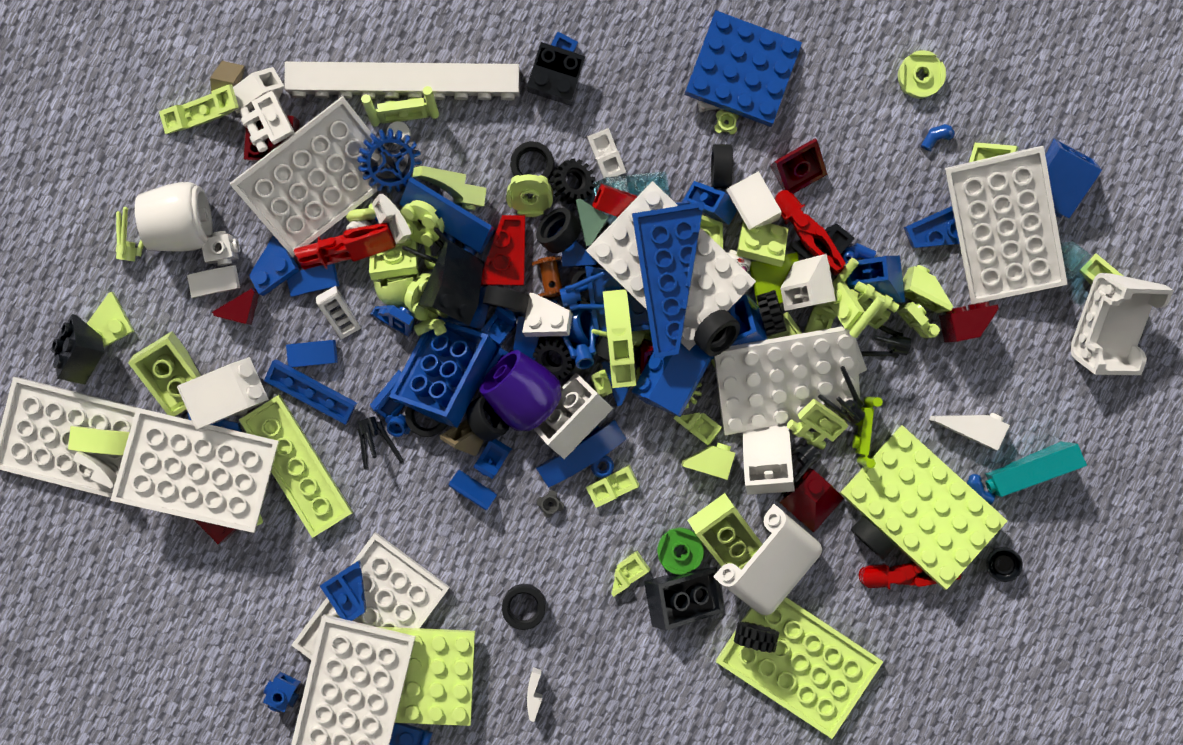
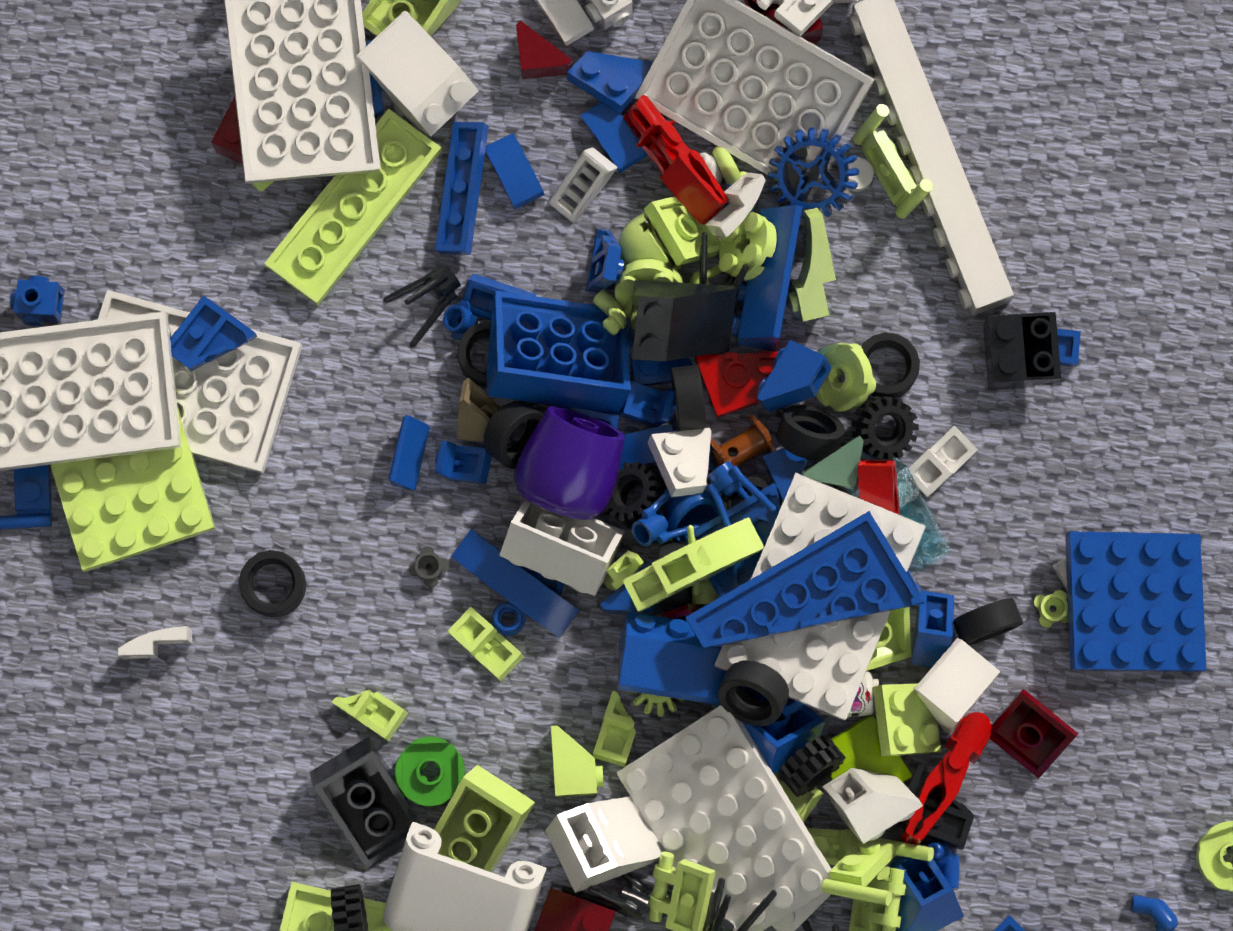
camera: 75 degrees right, 10 degrees down
(520, 226) = (794, 378): none -> blue slope

